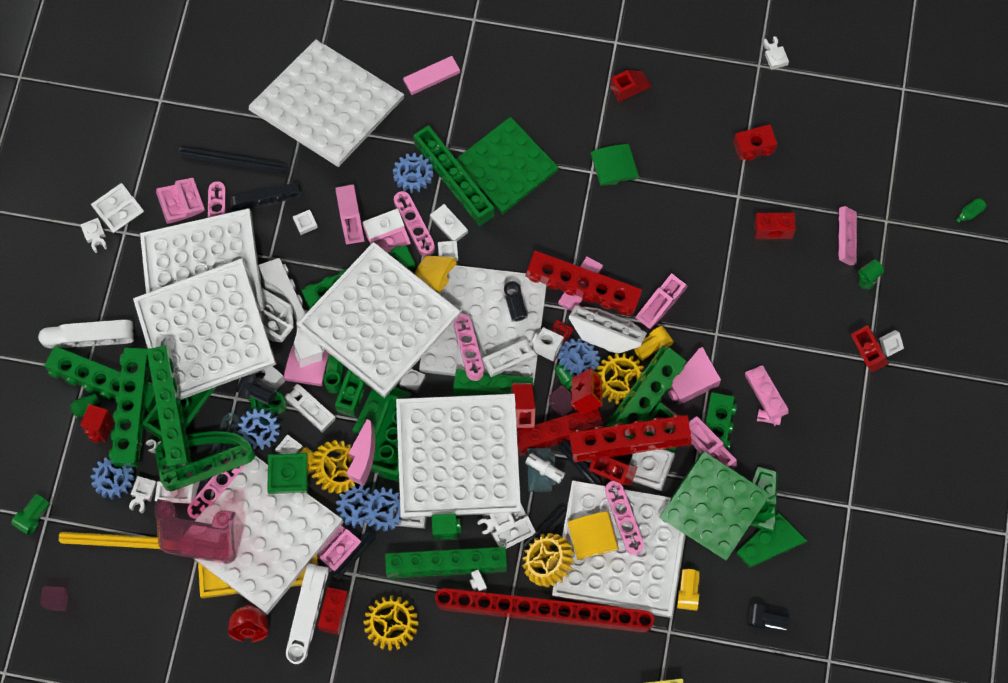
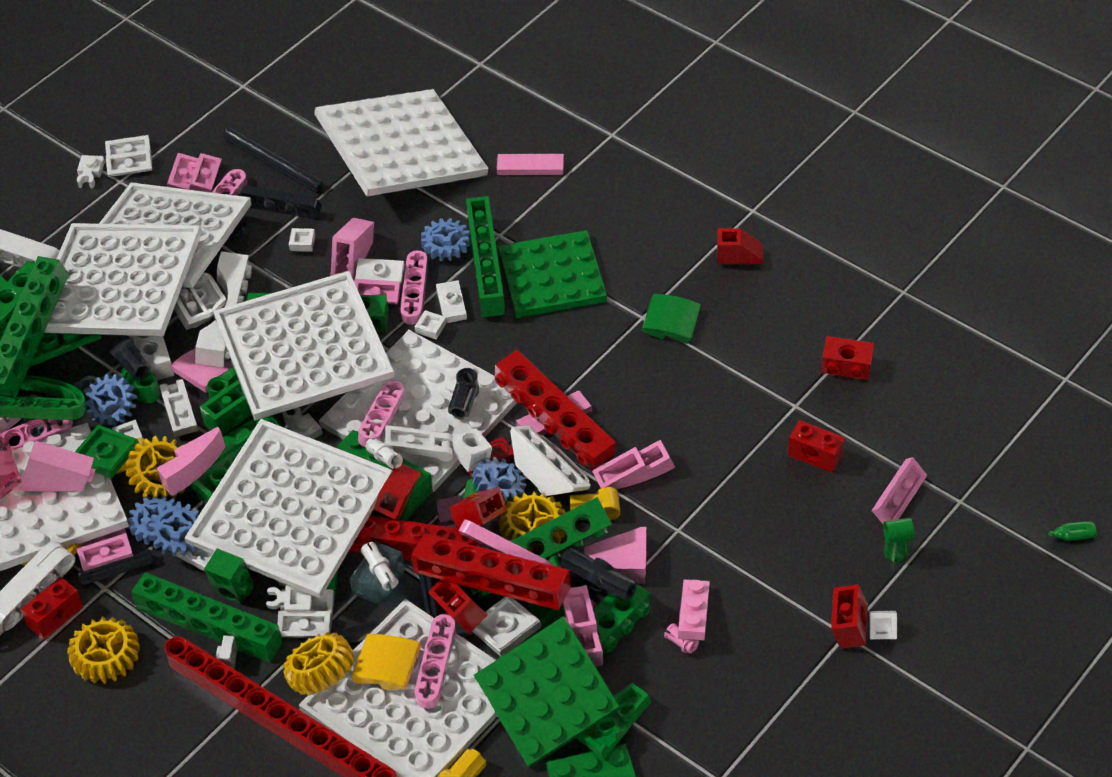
camera: 30 degrees right, 20 degrees down
(268, 509) = (56, 469): none -> bright pink slope
(434, 271) = (396, 333): yellow slope -> none
(498, 382) = (384, 453): none -> white pin
(627, 415) = (496, 542): none -> bright pink beam
(696, 402) = (598, 575): none -> black piece
(775, 55) = (929, 287): white plate -> none

